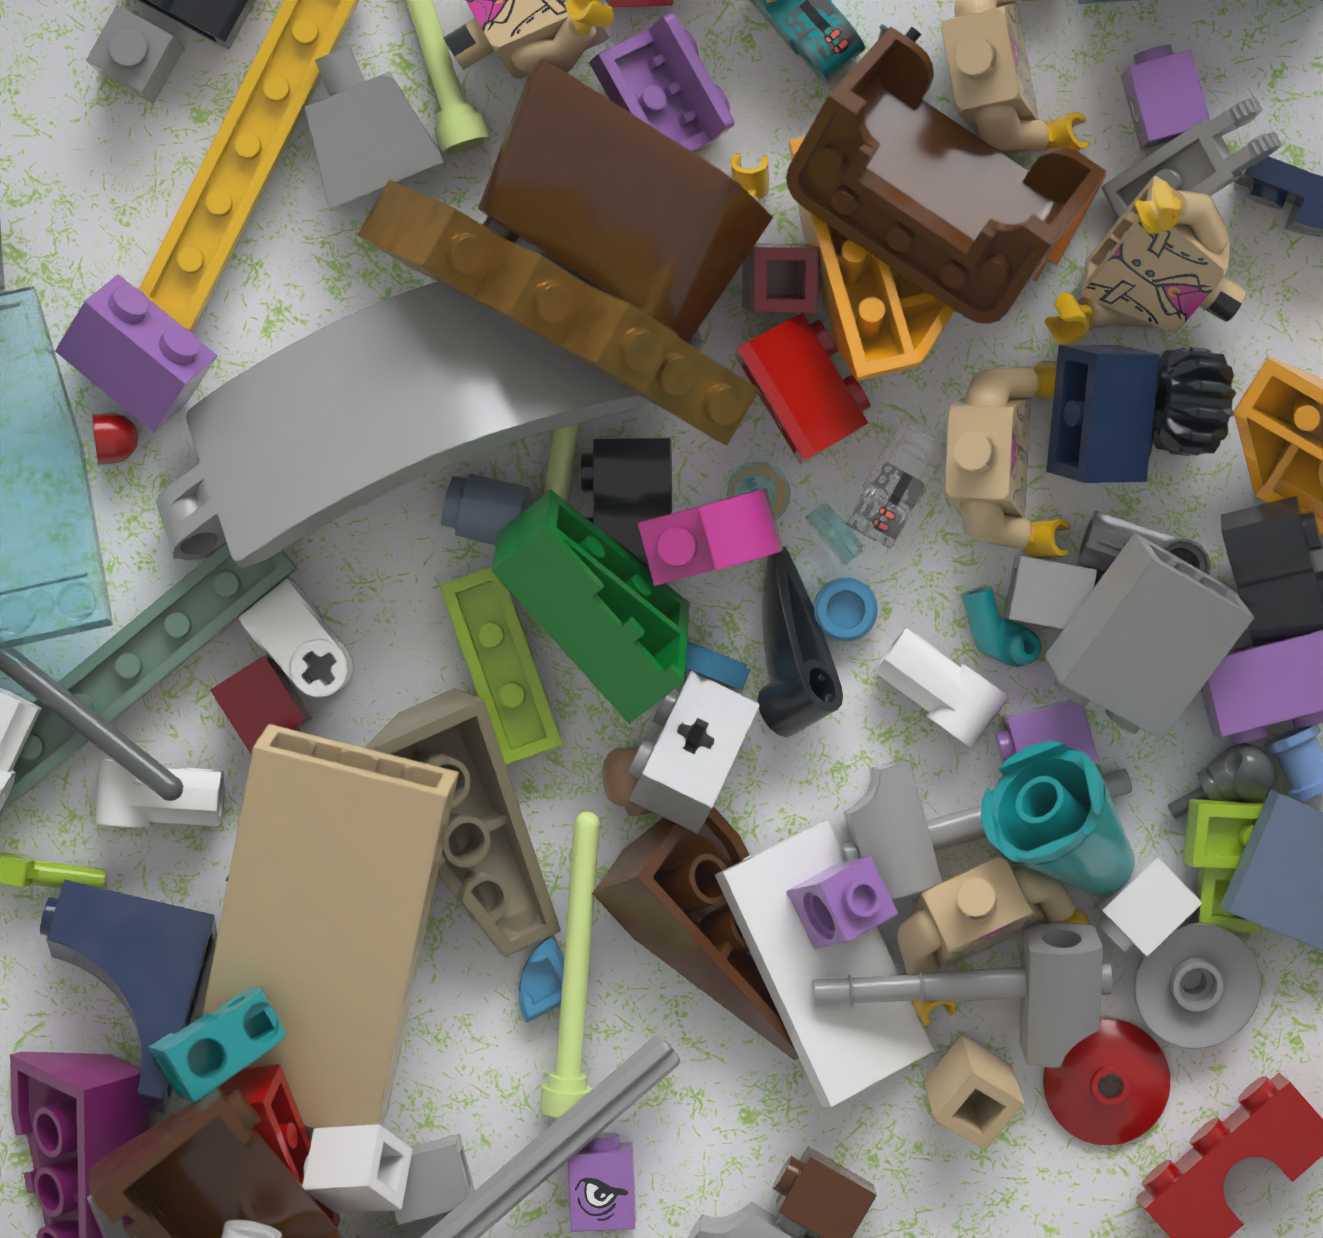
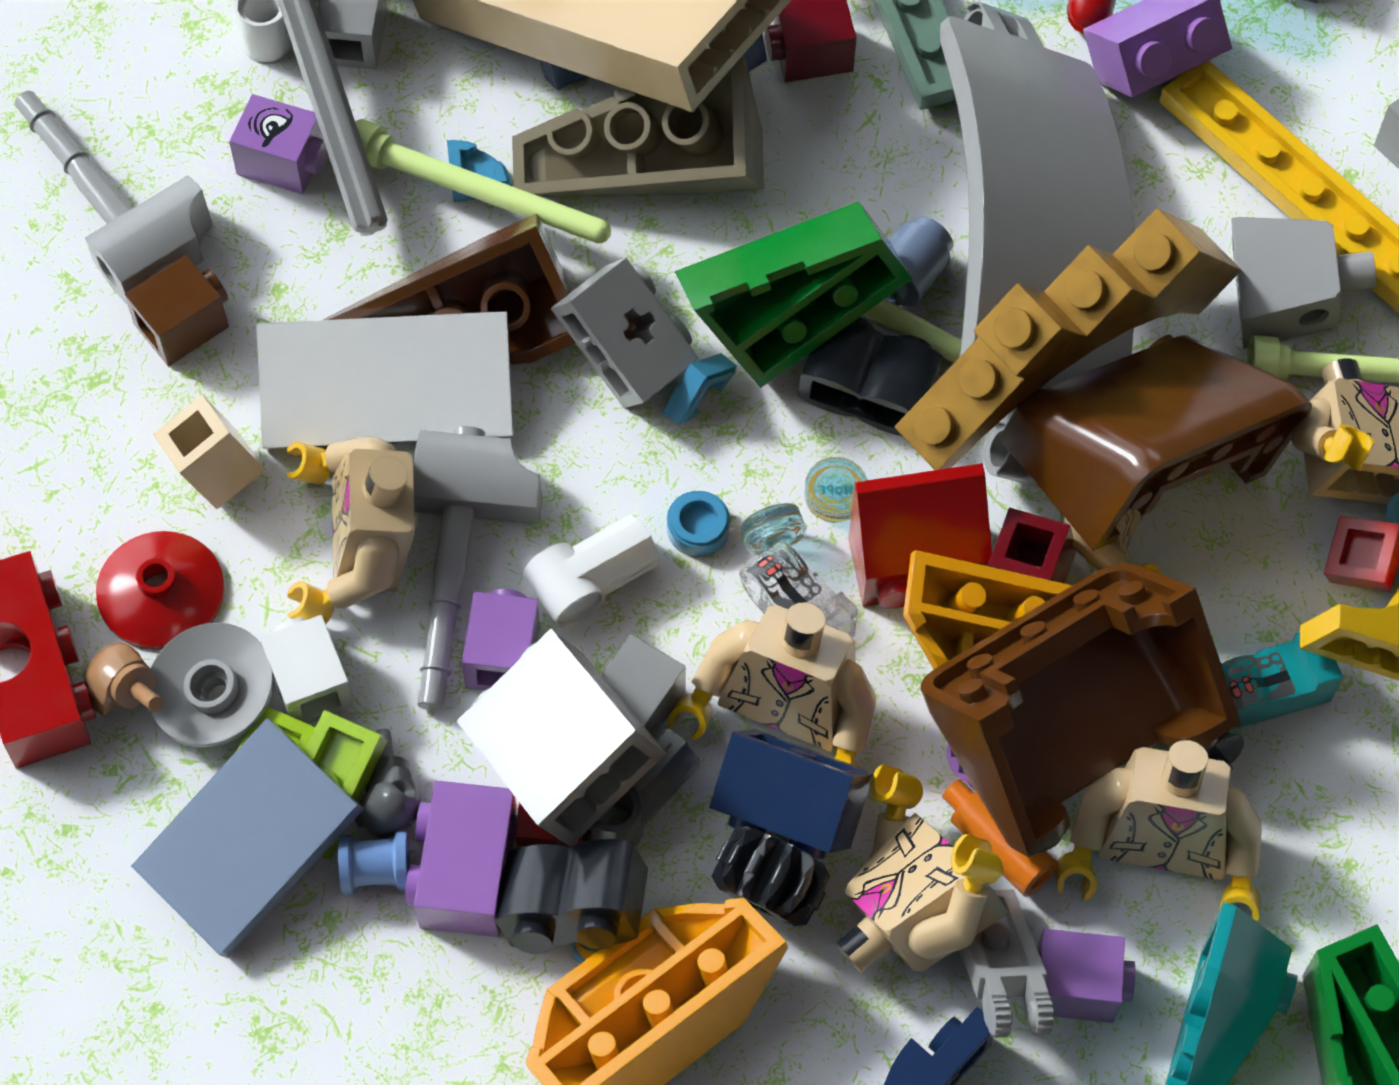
camera: 115 degrees right, 25 degrees down
(289, 632) = (860, 78): white piece -> none
(501, 664) = (723, 221): lime plate -> none
(665, 84) = (1241, 528): medium lavender bracket -> none
(710, 537) = (813, 415): dark pink brick -> none
(798, 659) = (679, 461): black piece -> none
(842, 902) = (433, 395): medium lavender brick -> none
(998, 636) = (609, 637): teal arm -> none
(1056, 986) = (285, 553): light grey piece -> none
(1059, 814) = (418, 596): teal cone -> none
(1224, 1067) = (120, 678): none -> medium nougat piece

